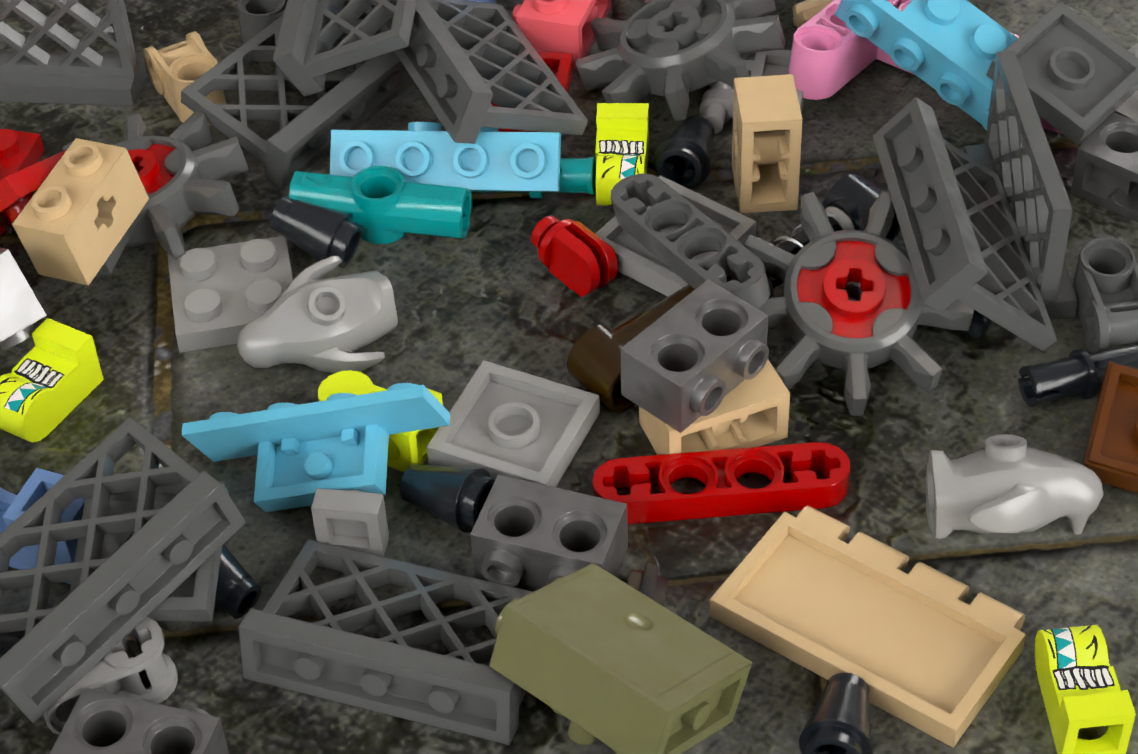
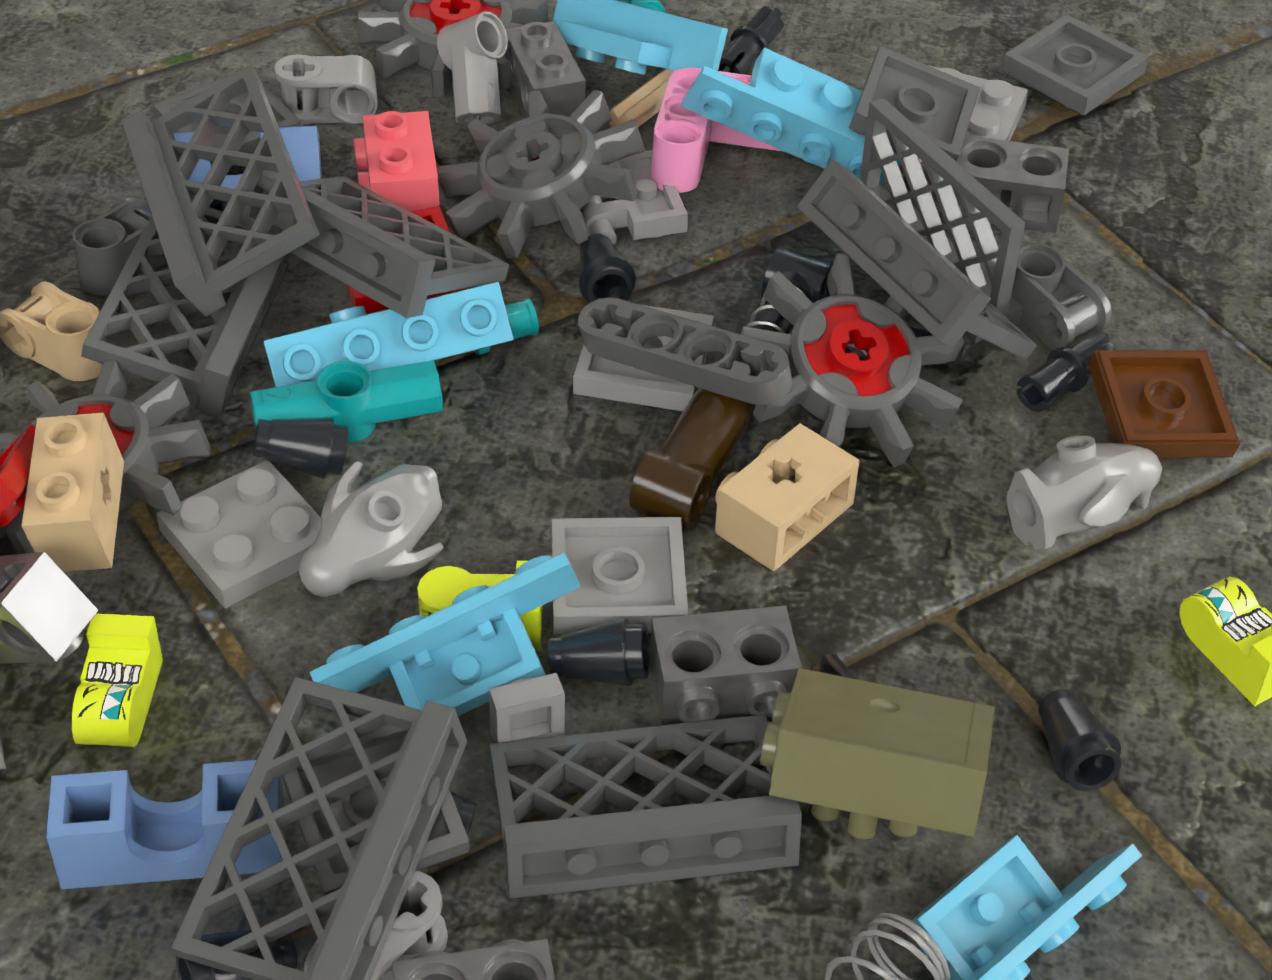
camera: 30 degrees left, 0 degrees up
(574, 254) = (566, 395): red arm -> none
(620, 145) = (541, 275): neon yellow leg -> none
(694, 355) = (771, 451): flat silver brick -> none
(719, 473) = (837, 569): red beam -> none
(766, 143) = (687, 241): tan brick -> none
(862, 615) = (1024, 641): tan hinge -> none

